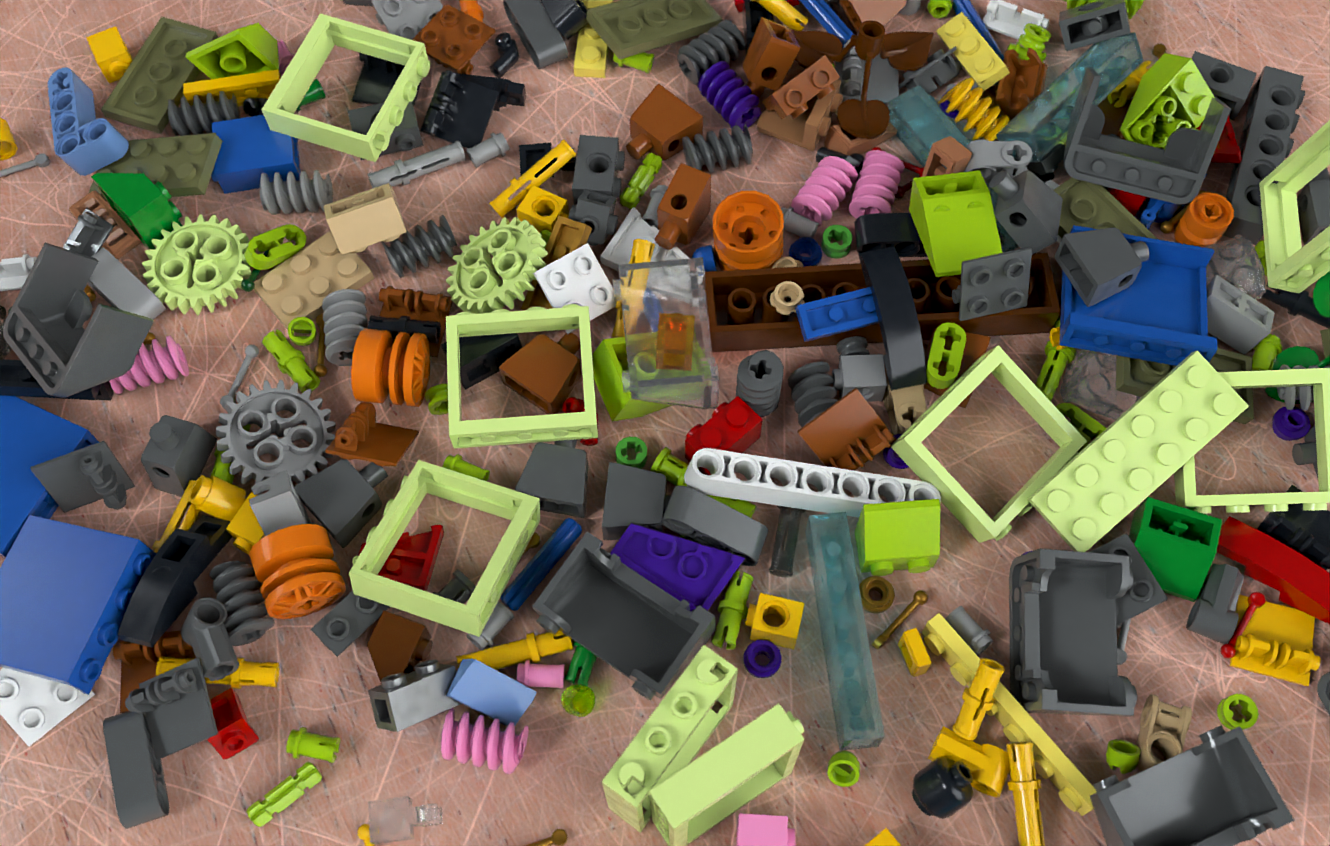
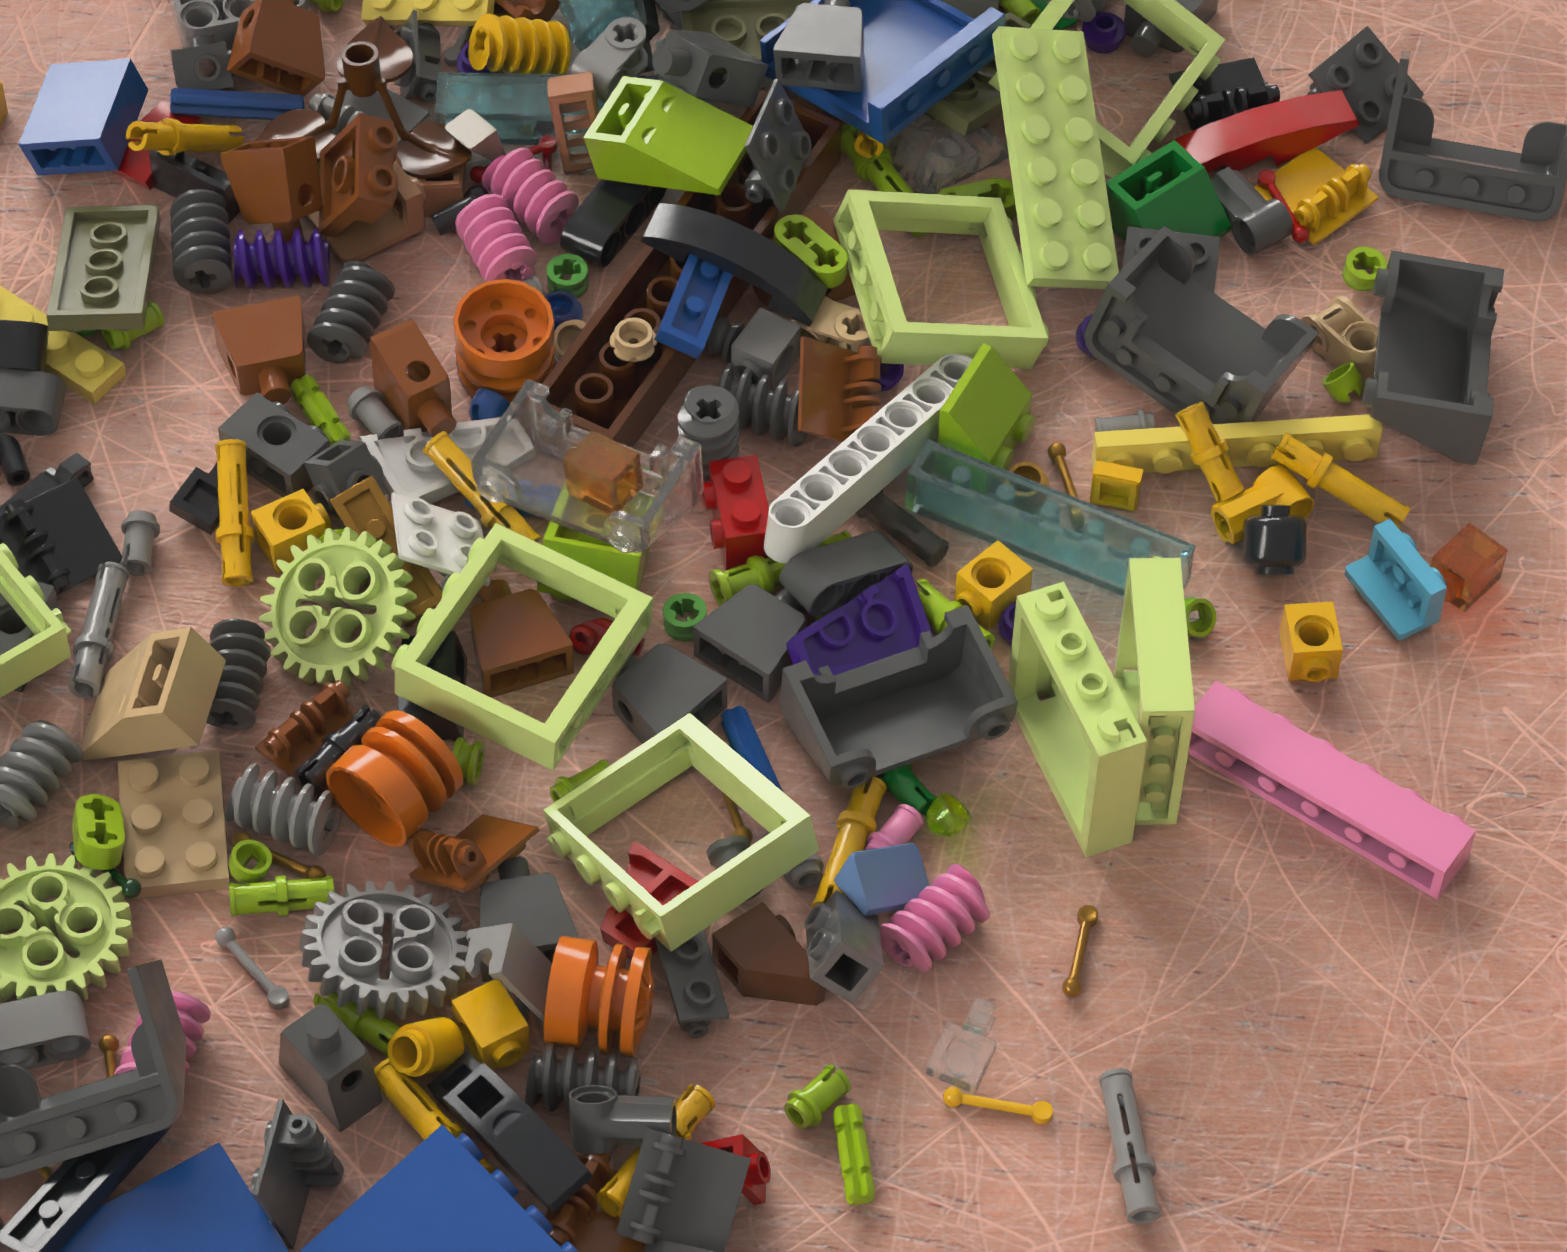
camera: 60 degrees left, 10 degrees down
(889, 131) = (476, 134): none -> slope

